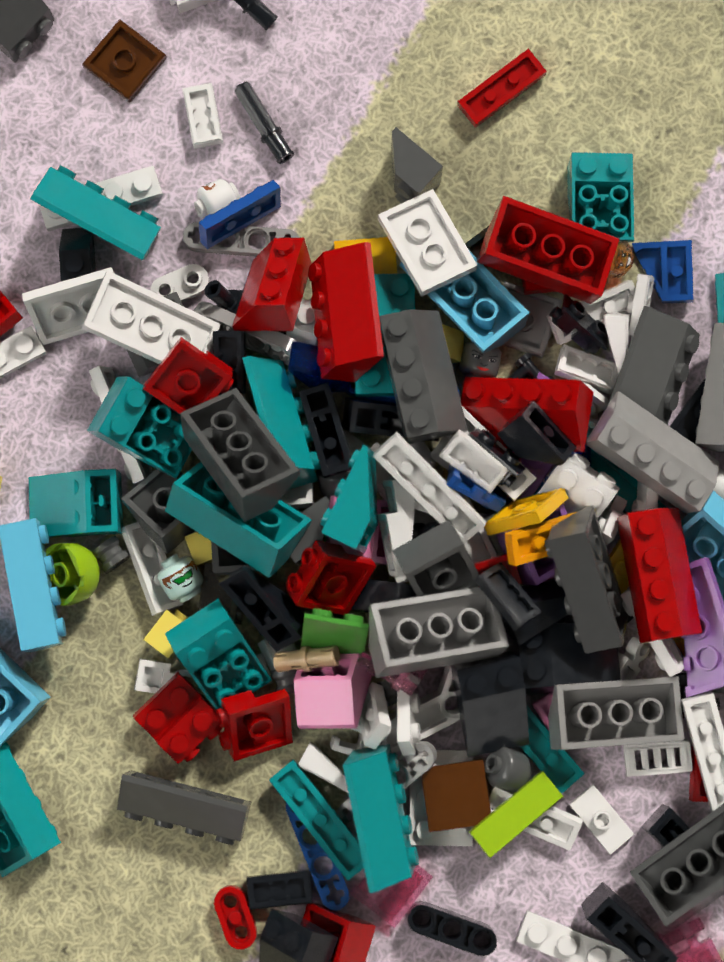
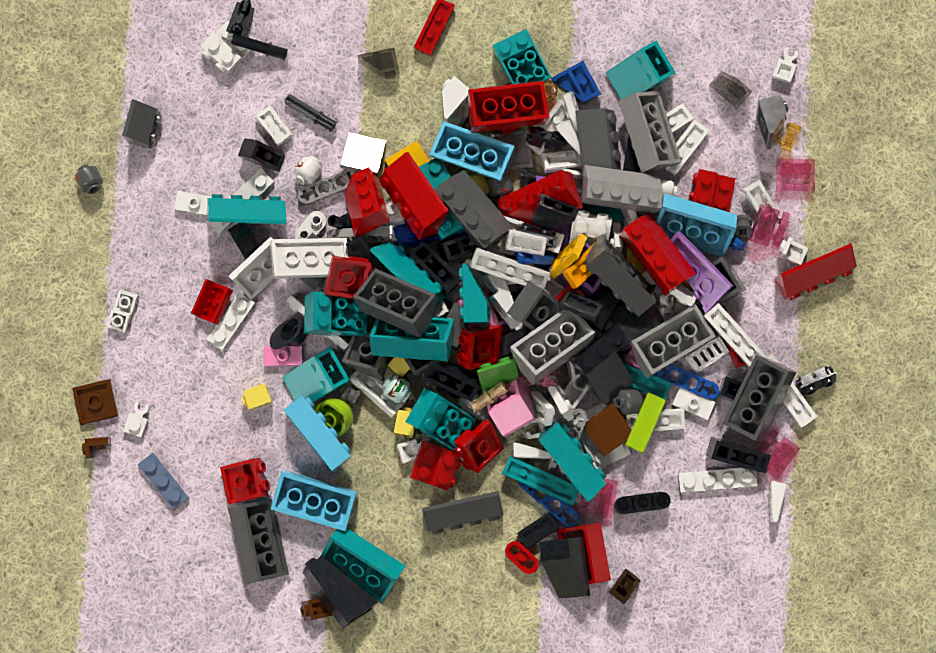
camera: 25 degrees left, 0 degrees up
(27, 163) = (191, 203): none -> white plate
(46, 447) = (284, 356): none -> bright pink plate
(69, 419) = (289, 332): none -> black piece
(124, 60) = (212, 116): reddish brown tile -> none
(163, 146) = (261, 154): none -> black slope
(239, 214) = (325, 171): blue plate -> none
(308, 215) = (363, 153): none -> tile
(400, 100) = (381, 62): none -> clear smoke slope
(412, 168) = (409, 99): dark grey slope -> none
(427, 242) = (438, 135): white plate -> none
(478, 200) = (454, 97): none -> white slope
(601, 779) = (682, 382): none -> blue beam

